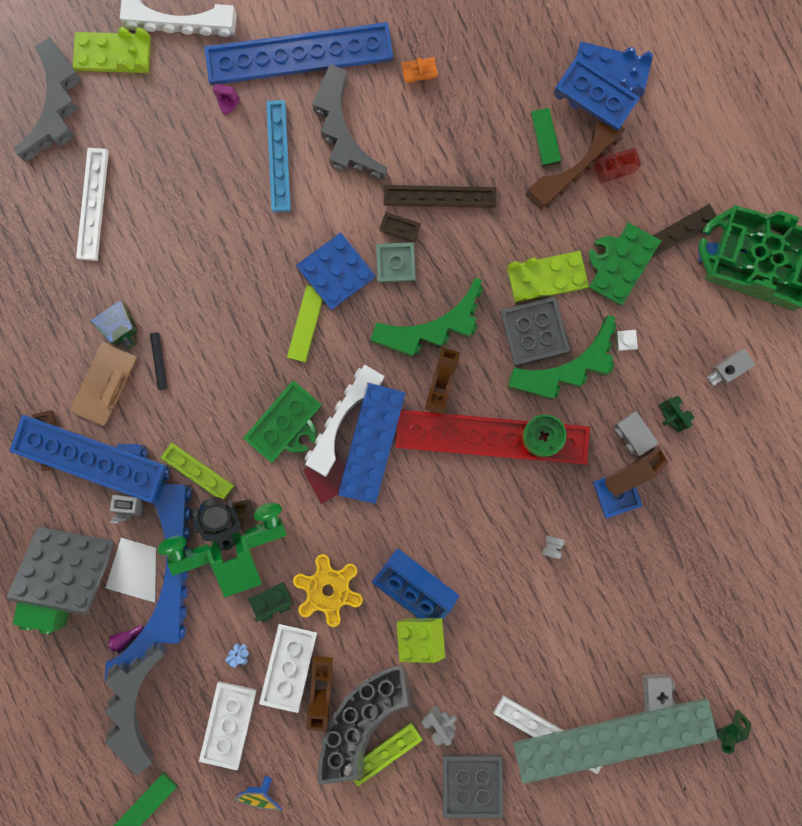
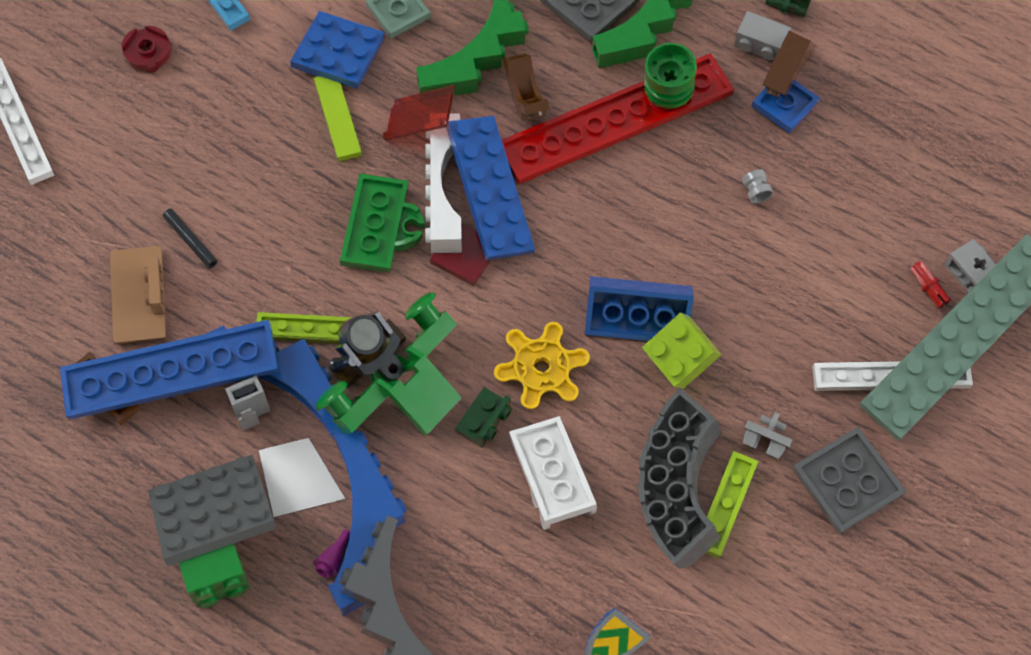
camera: 30 degrees left, 20 degrees down
(117, 325) = (117, 224): torso -> none
(217, 201) = (146, 60): none -> dark red plate
(227, 725) = (522, 581): white plate -> none
(238, 655) = (484, 494): light blue plant -> none
(320, 693) = (608, 480): reddish brown arch -> none
(358, 359) = (420, 113): none -> clear red piece
(620, 686) = (930, 284): none -> red axle

